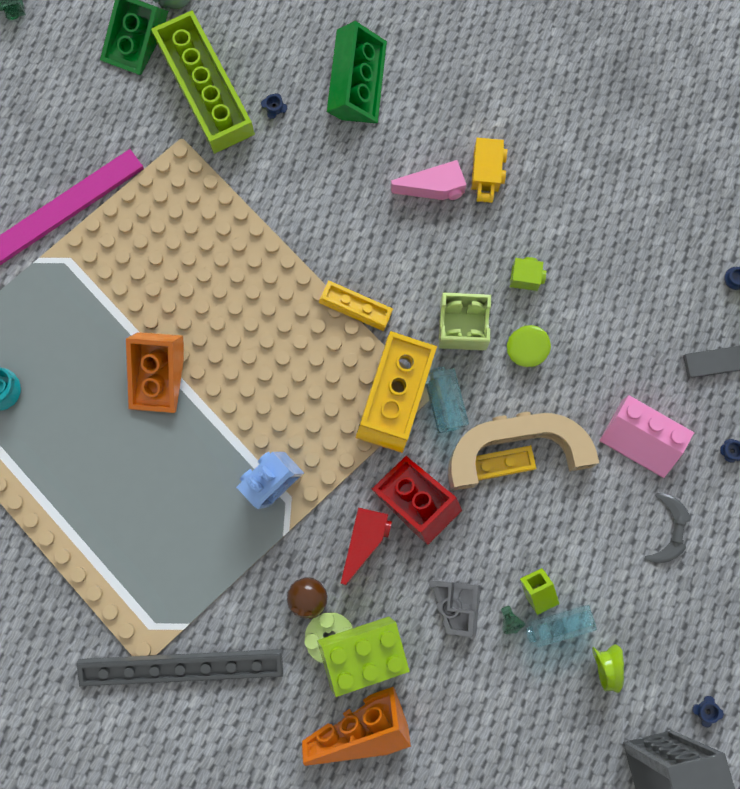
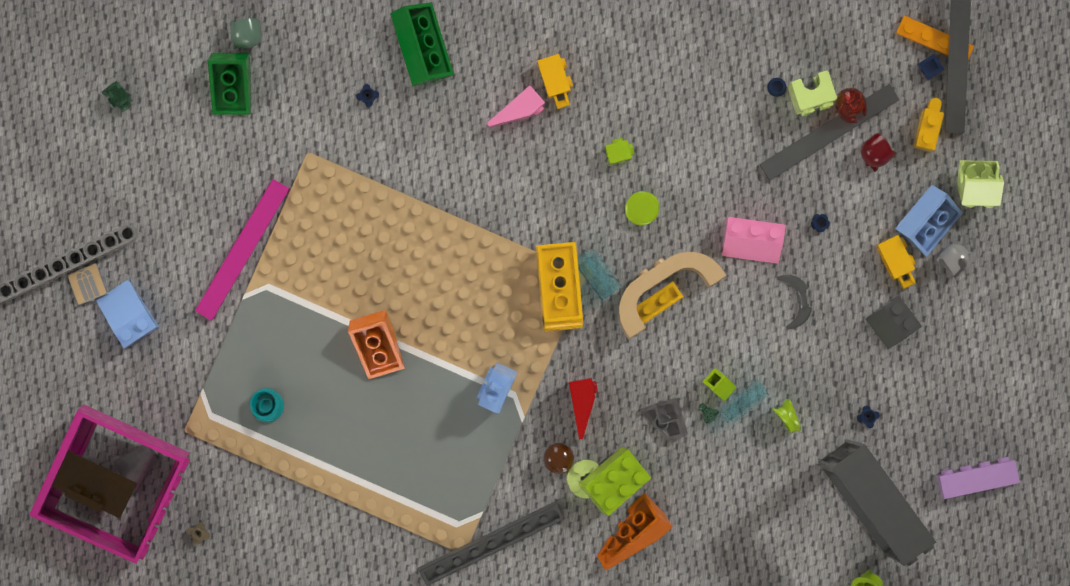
camera: 20 degrees left, 10 degrees up
(203, 81) = (305, 102): lime brick -> none
(355, 305) = (501, 230): yellow tile -> none
(418, 499) = (607, 355): red slope -> none
(464, 321) = (587, 211): yellowish green piece -> none

